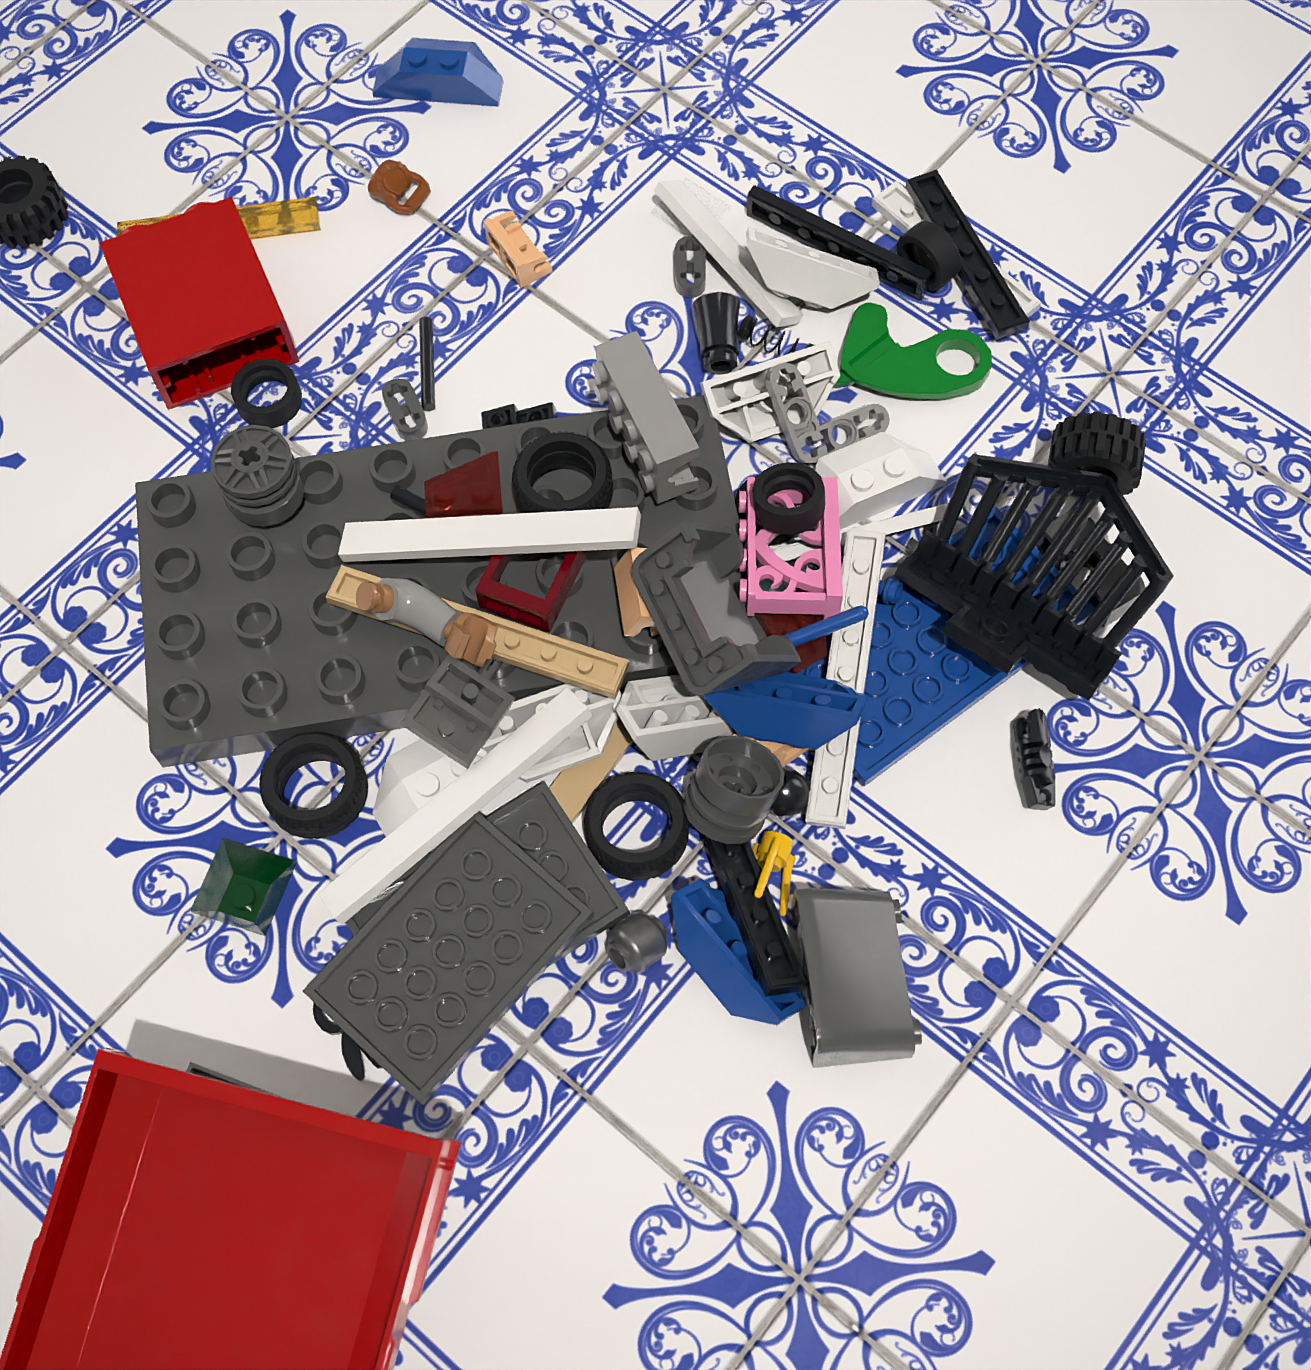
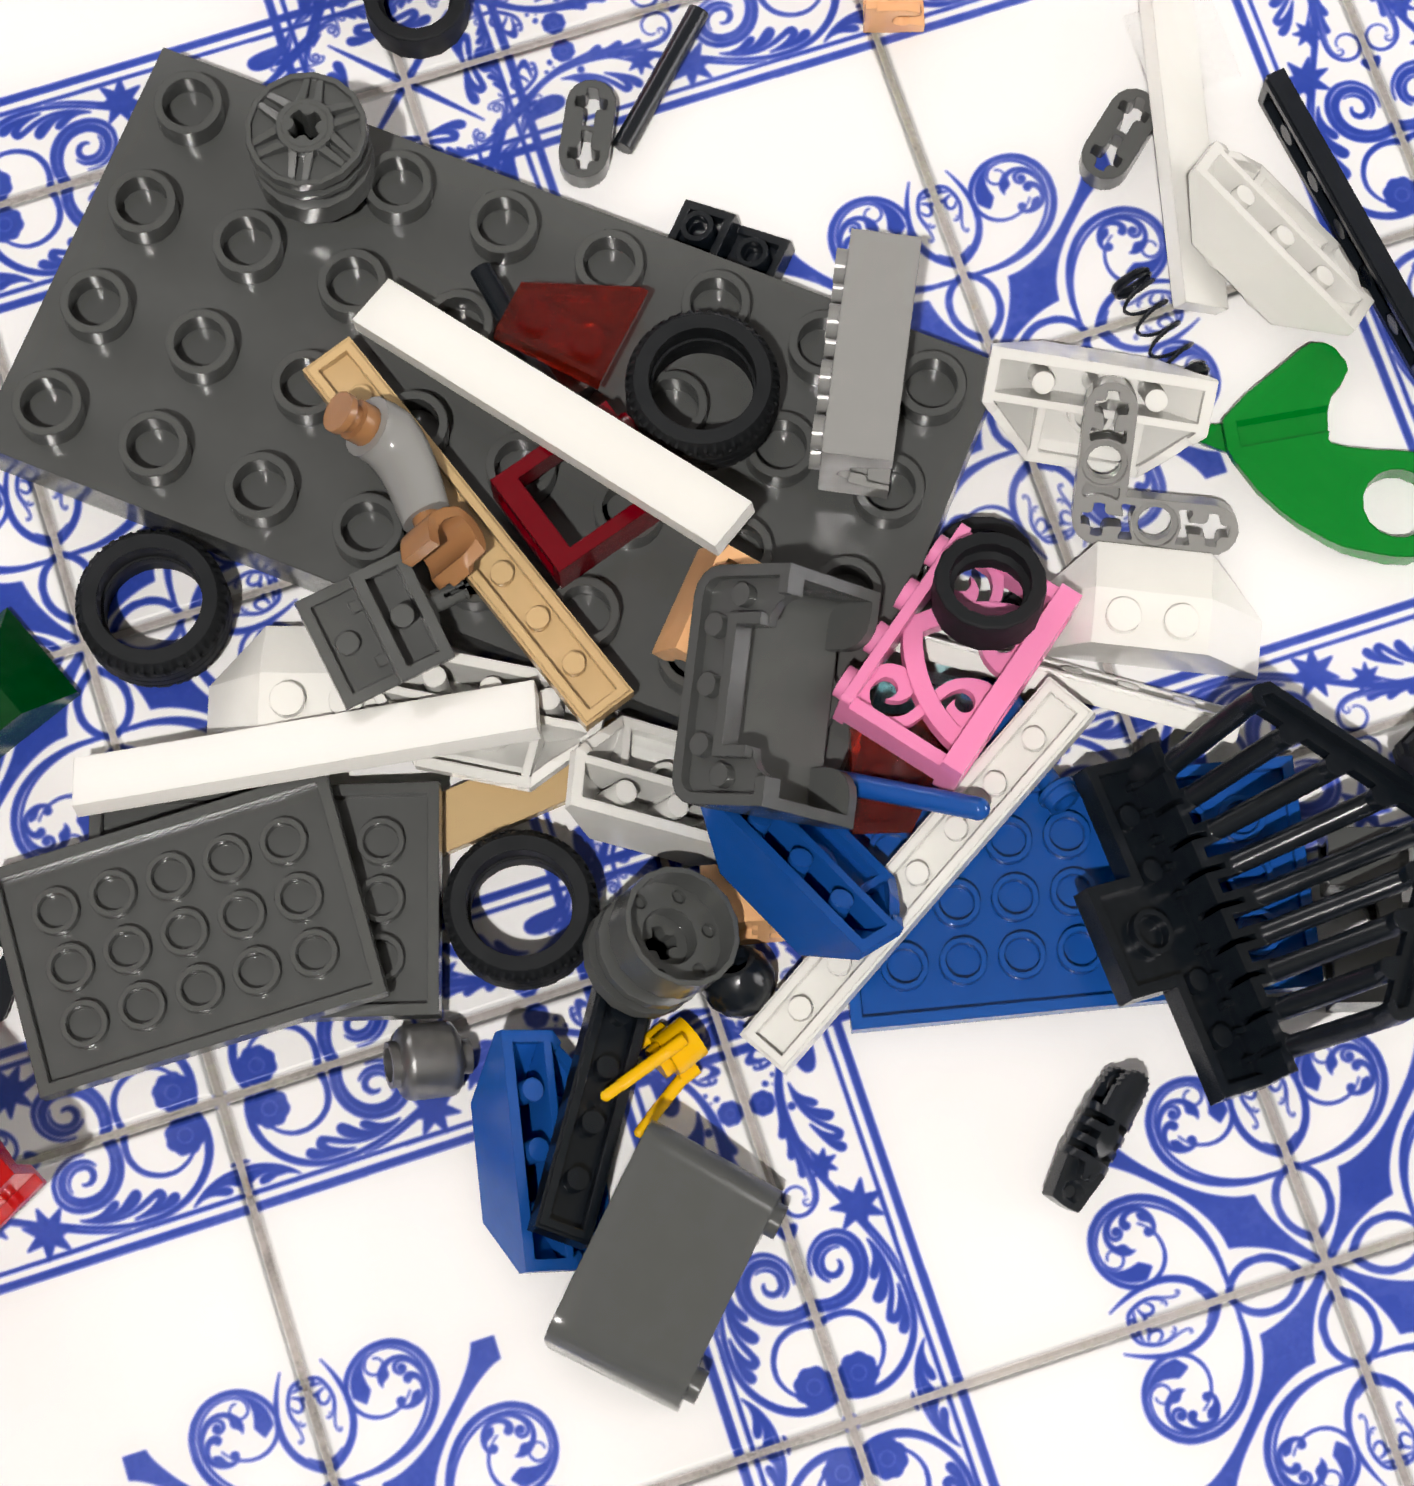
camera: 30 degrees right, 10 degrees up
(718, 330) = (1085, 268): black plant -> none

